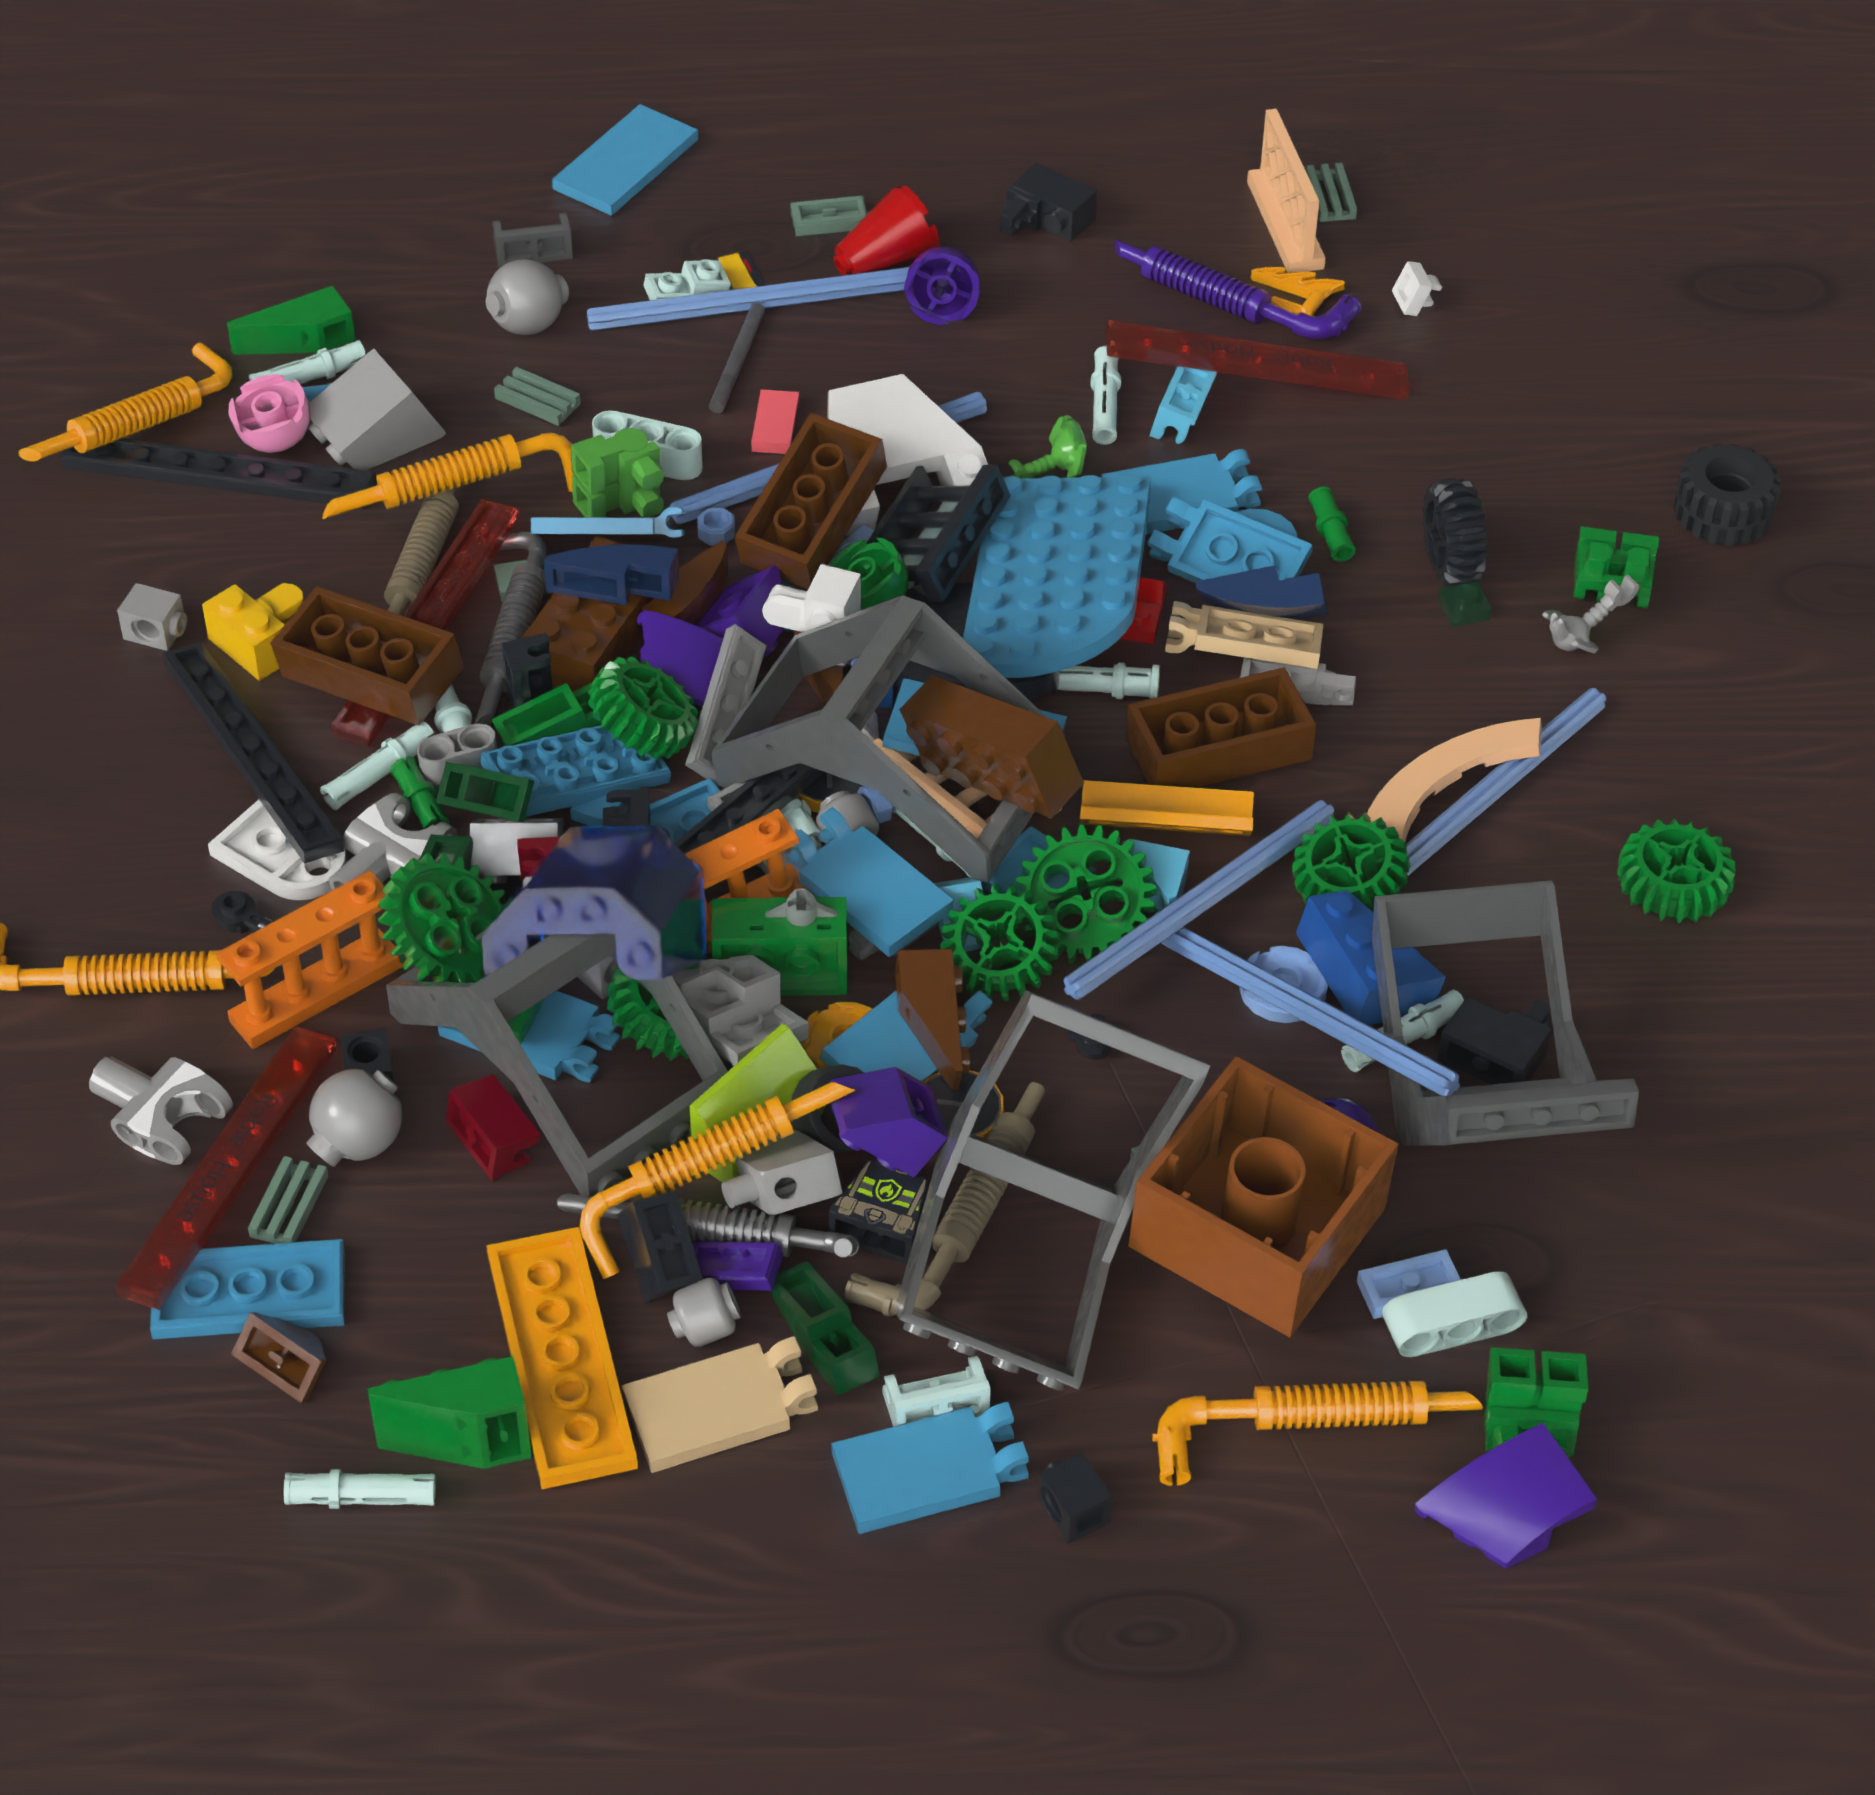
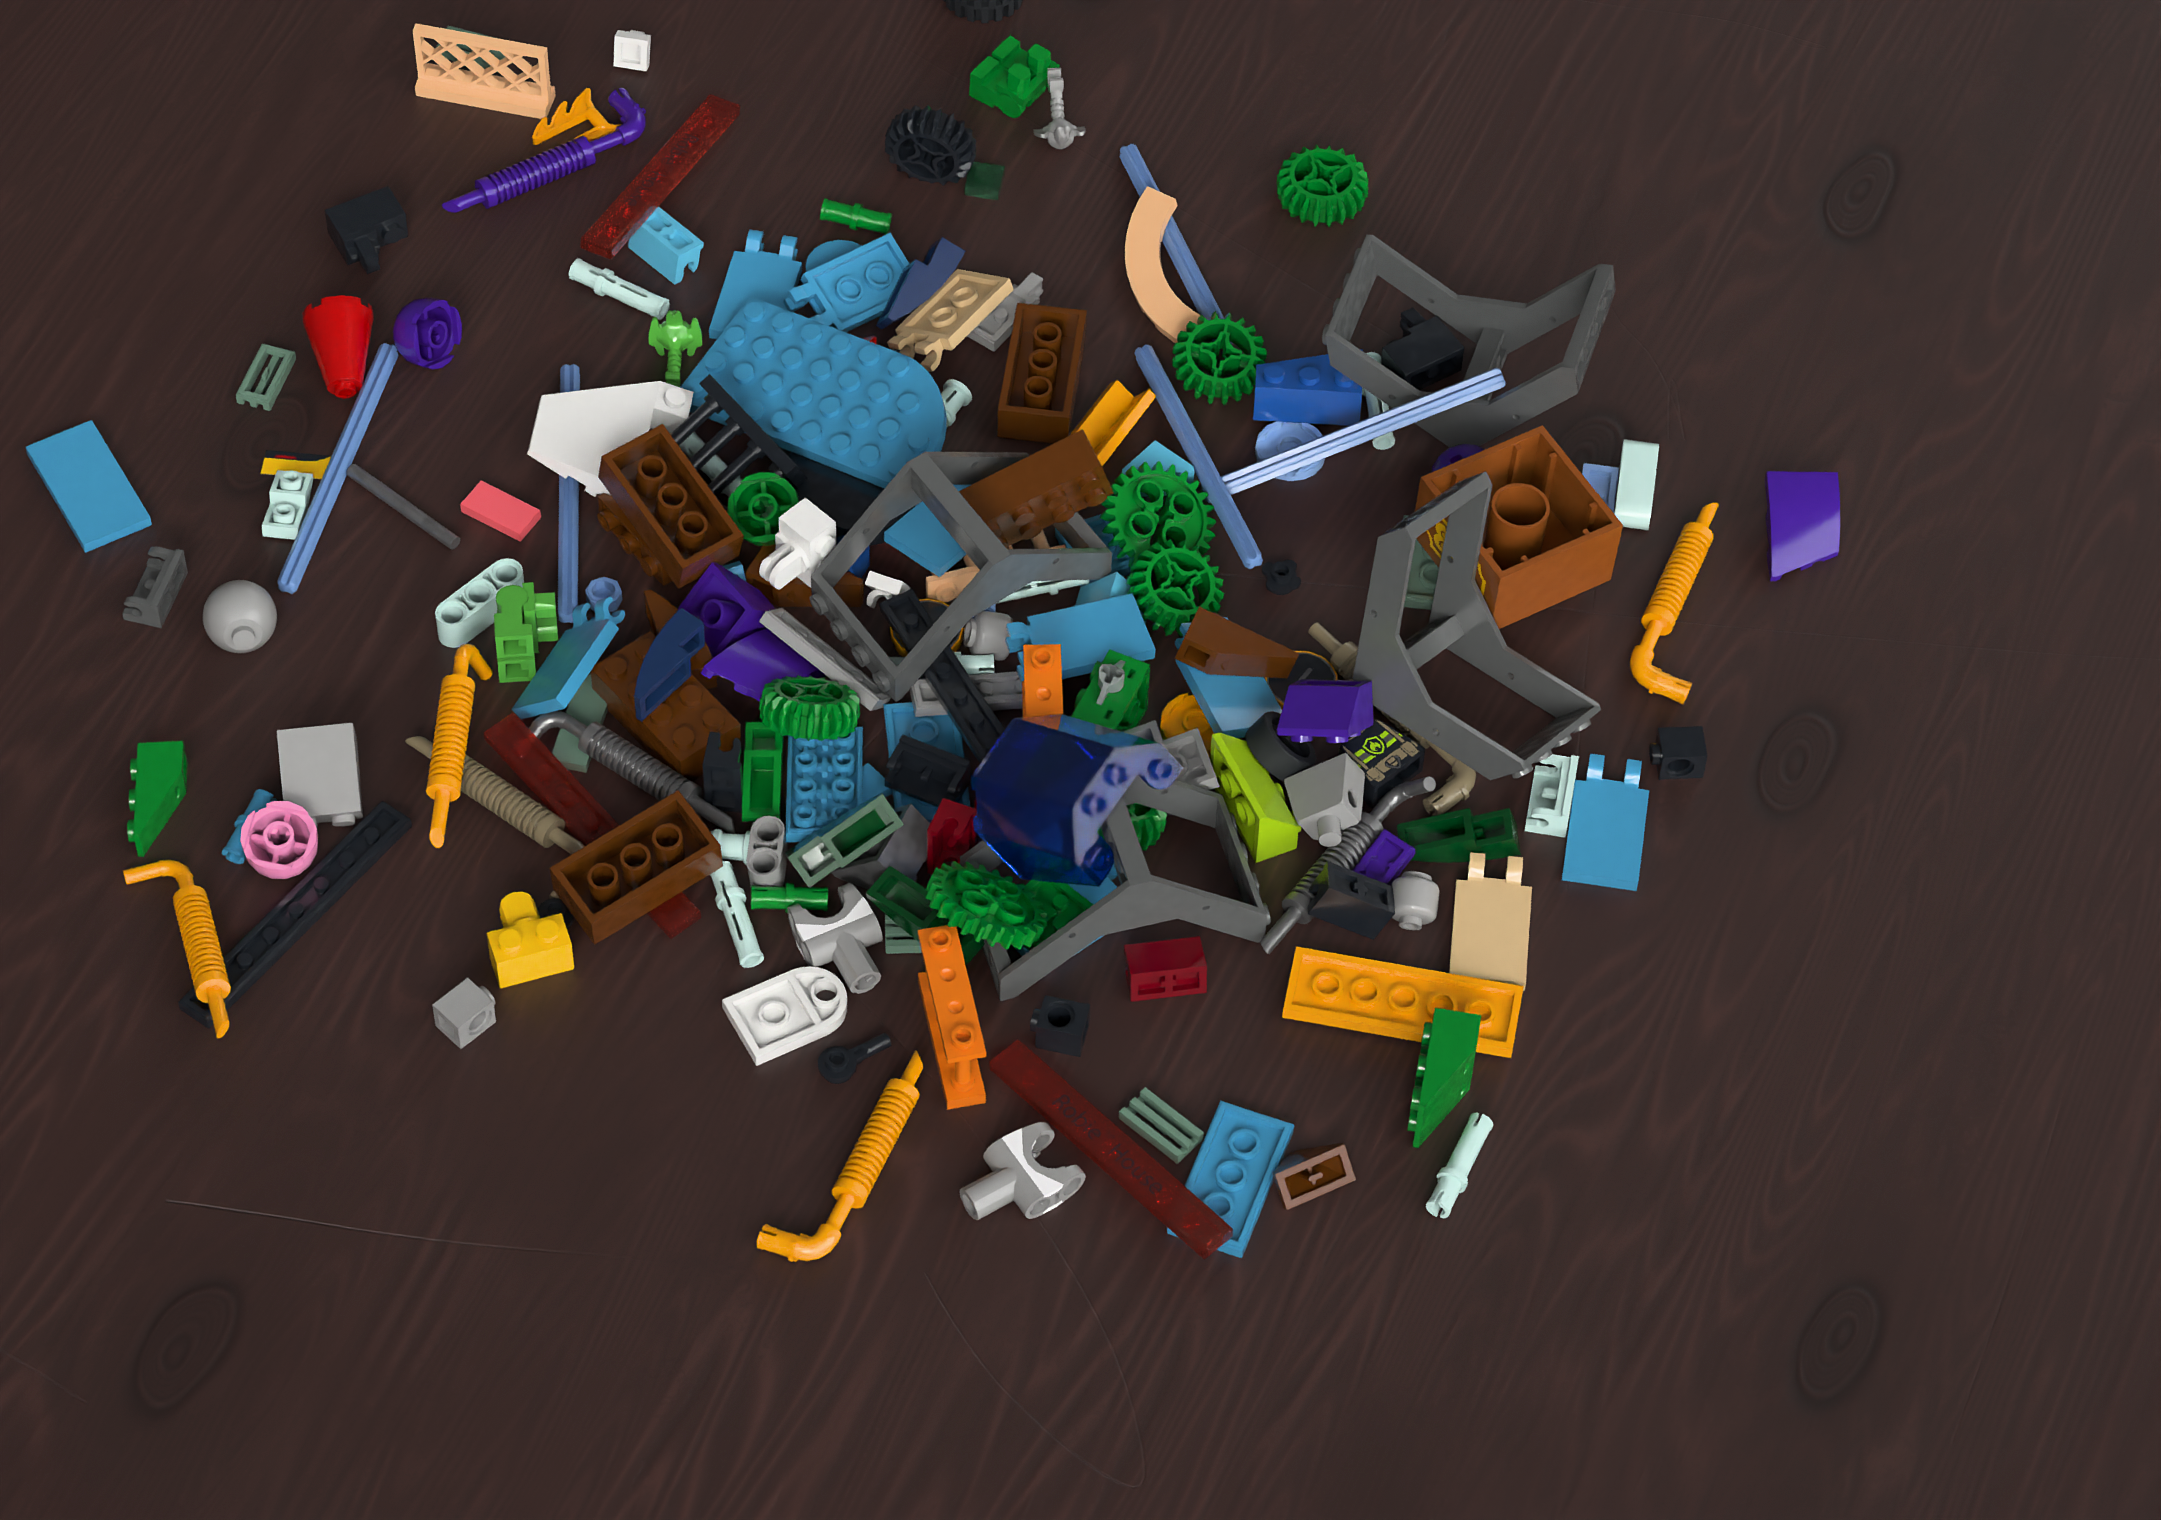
camera: 65 degrees left, 5 degrees up
(253, 753) = (668, 993): black tile -> none
(319, 365) = (217, 790): light aqua pin -> none
(354, 1116) = (1122, 1044): light grey brick -> none
(541, 393) = (354, 654): sand green tile -> none
(698, 1157) = (1299, 838): light orange piece -> none
(1523, 1399) = (1738, 473): green hips -> none

